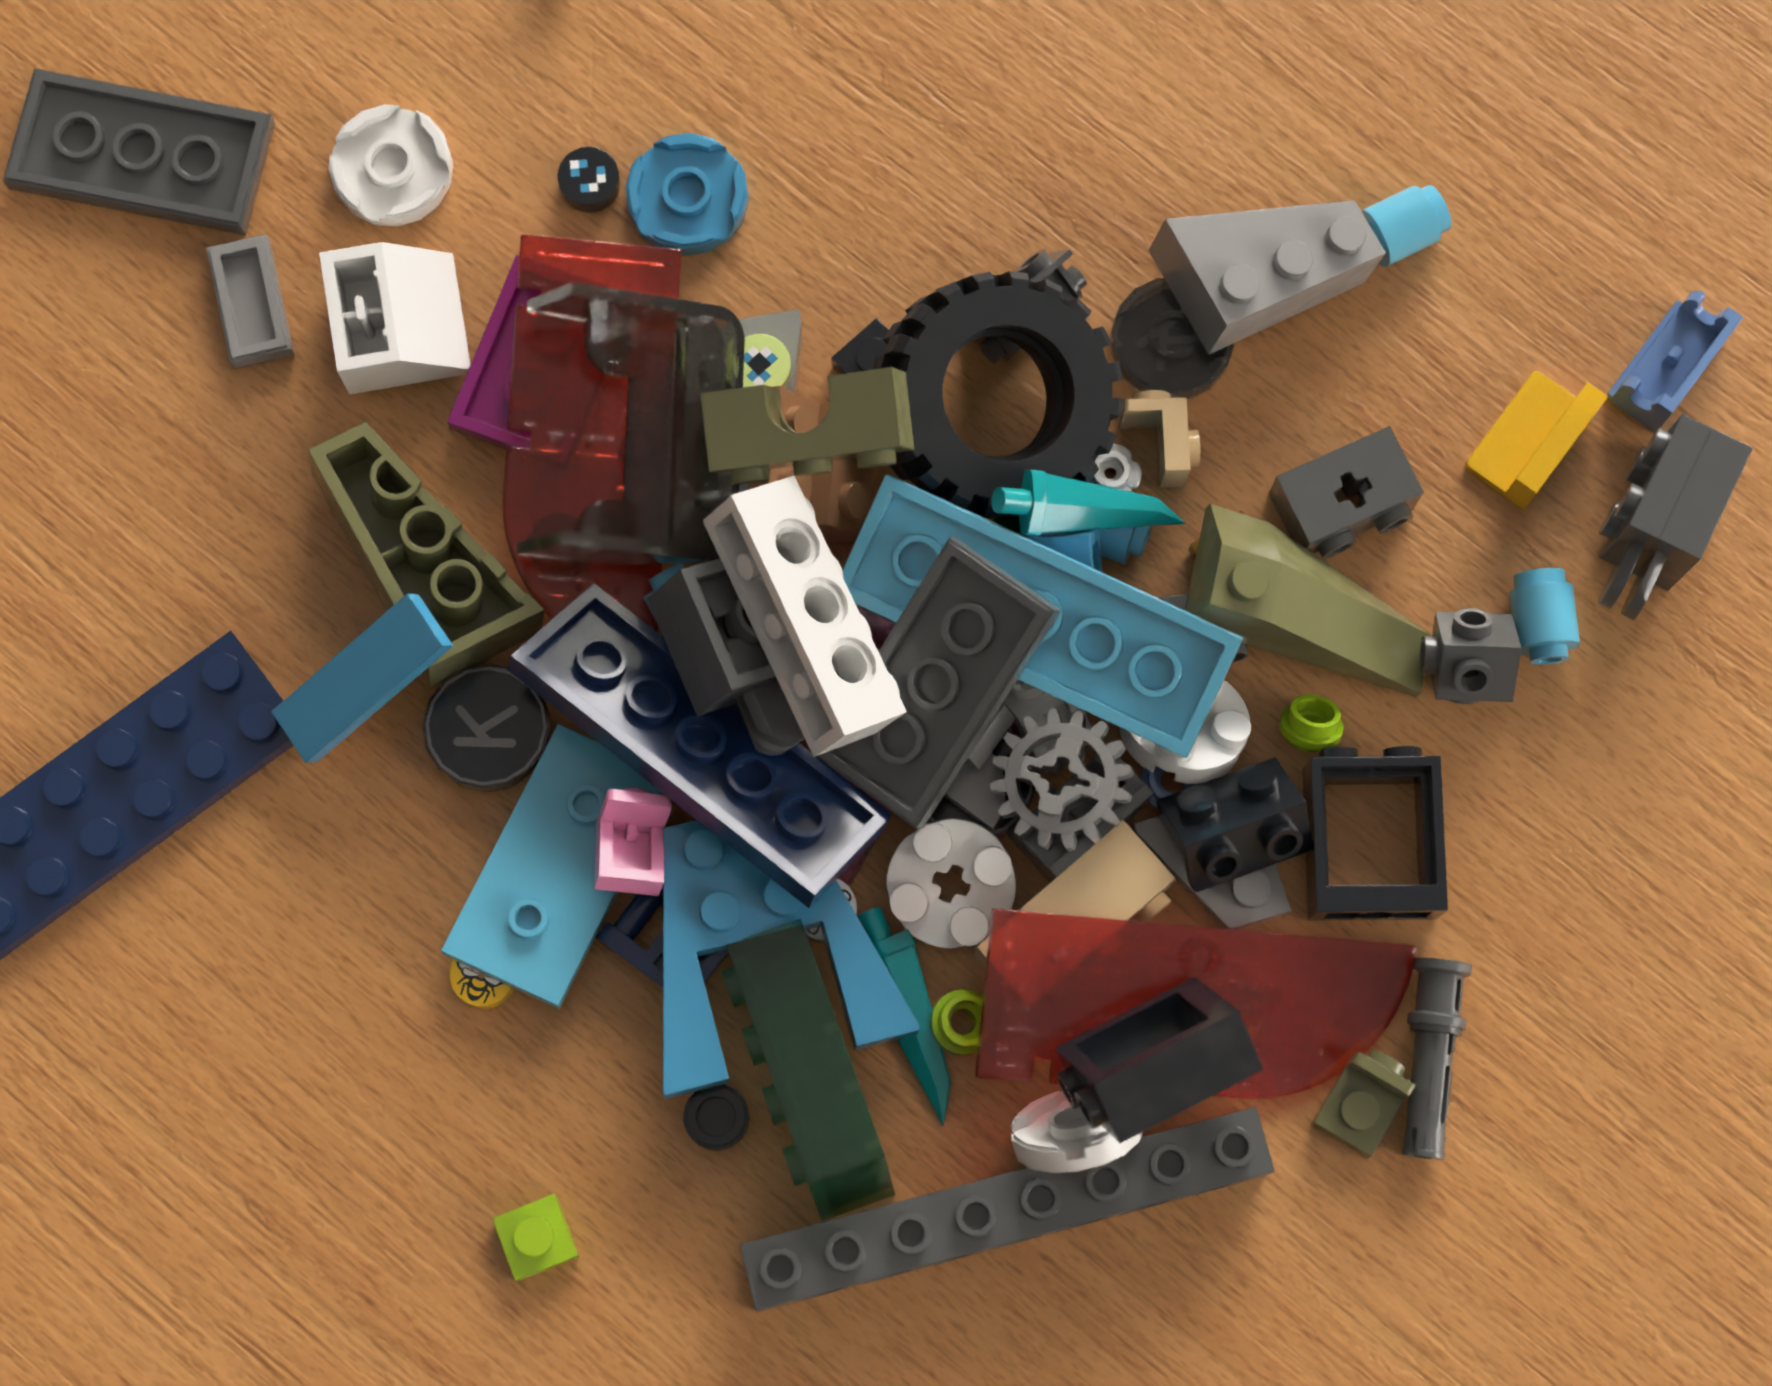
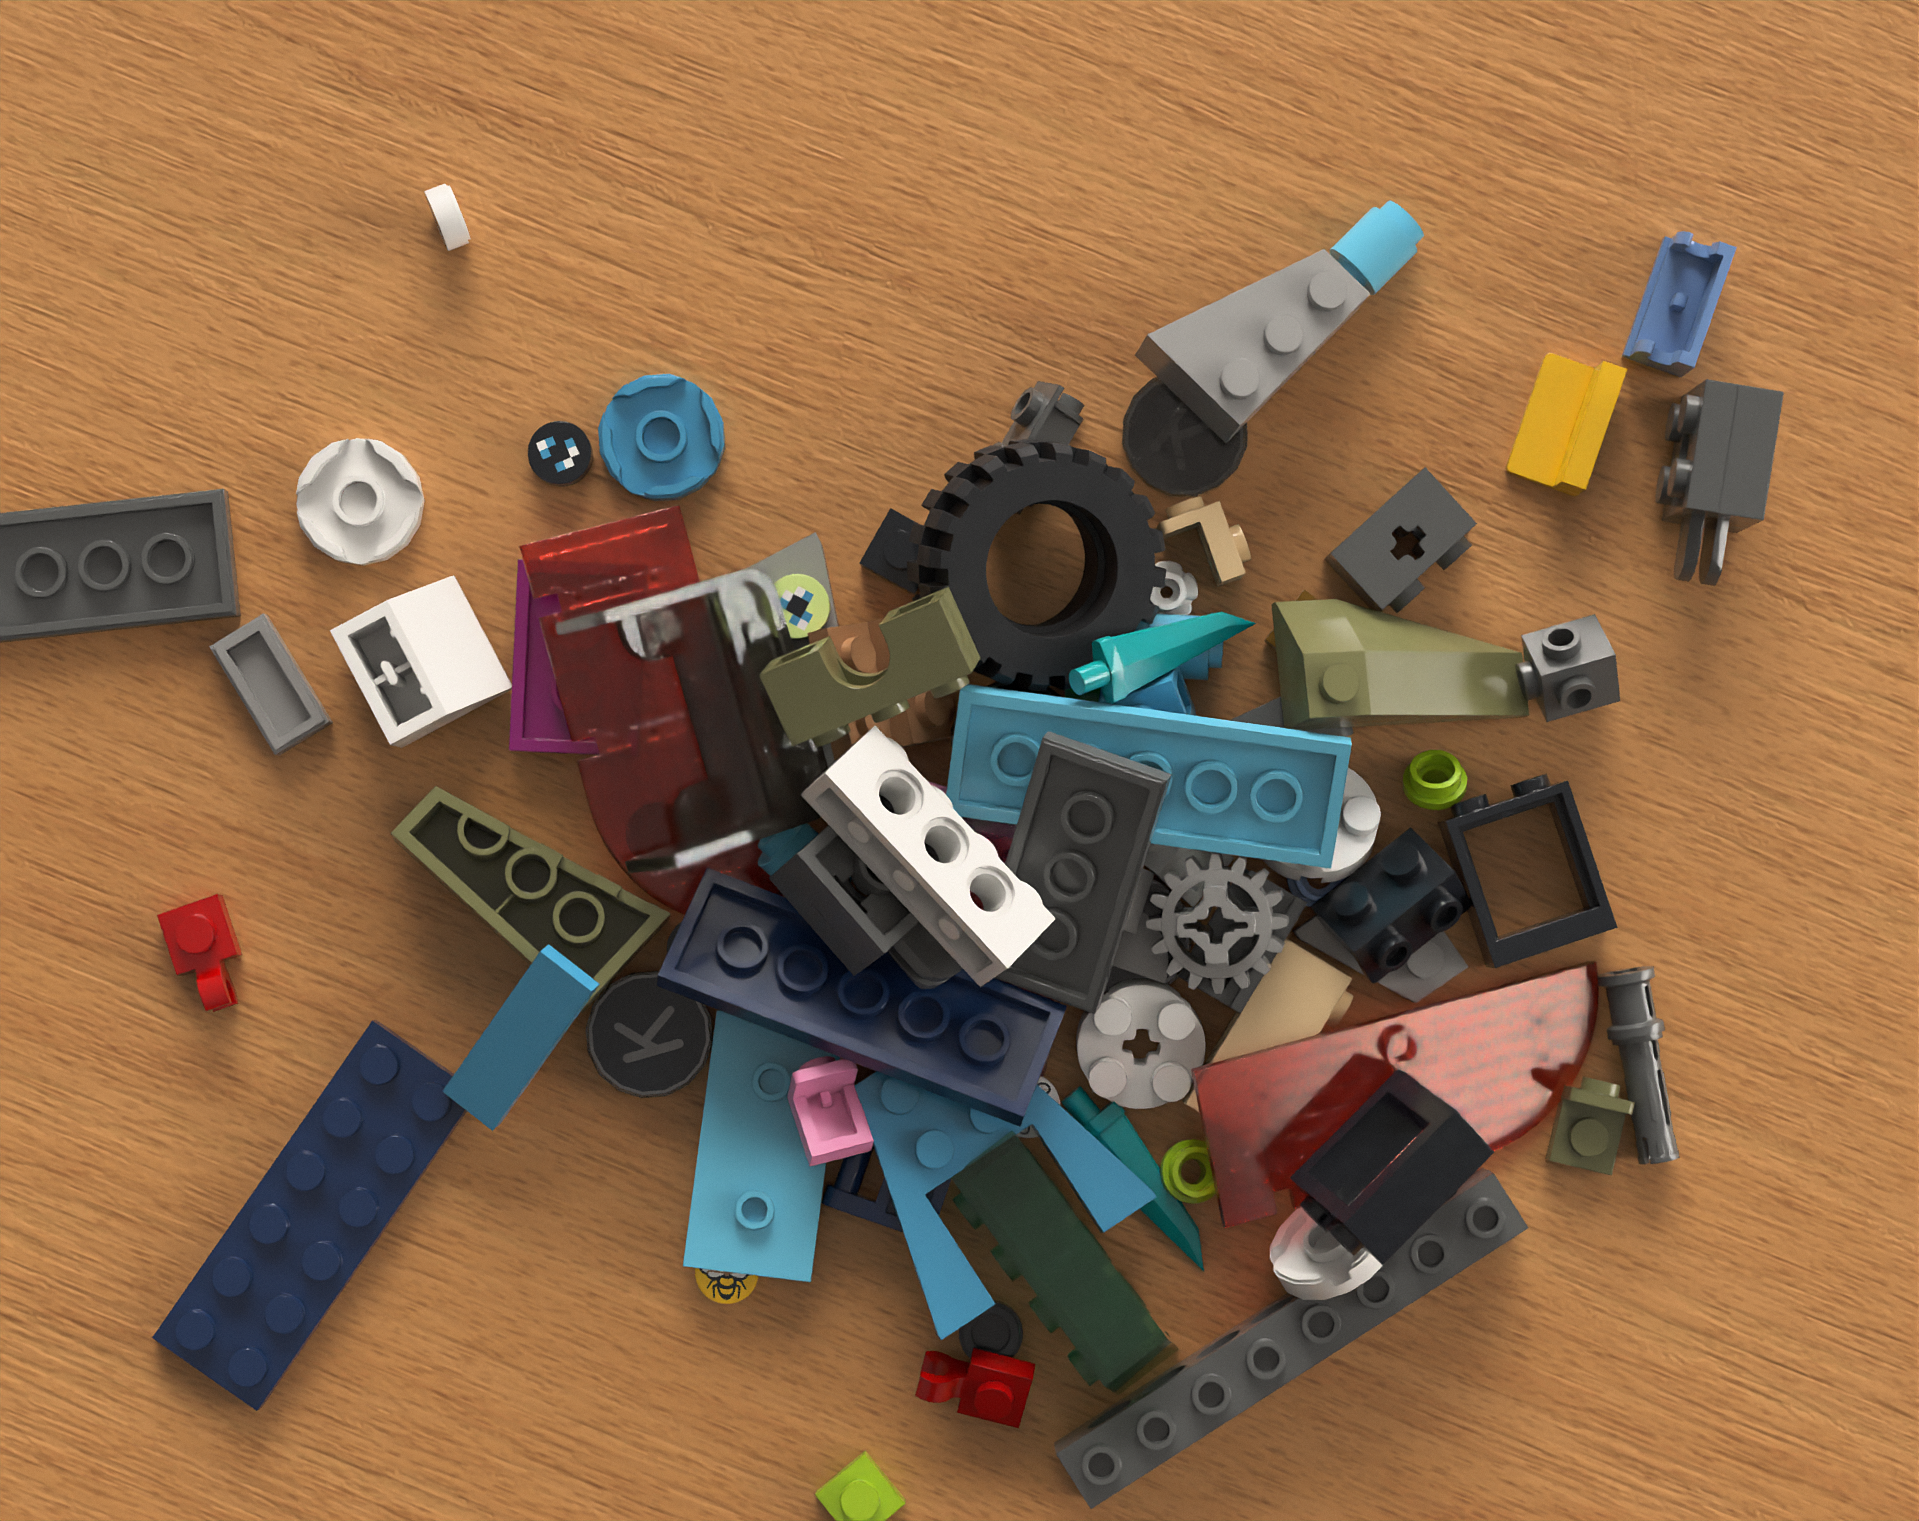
camera: 15 degrees left, 10 degrees up
(97, 512) = (200, 942): none -> red plate
(696, 1165) = (988, 1385): none -> red plate
(1544, 615) = (1626, 603): medium azure brick -> none

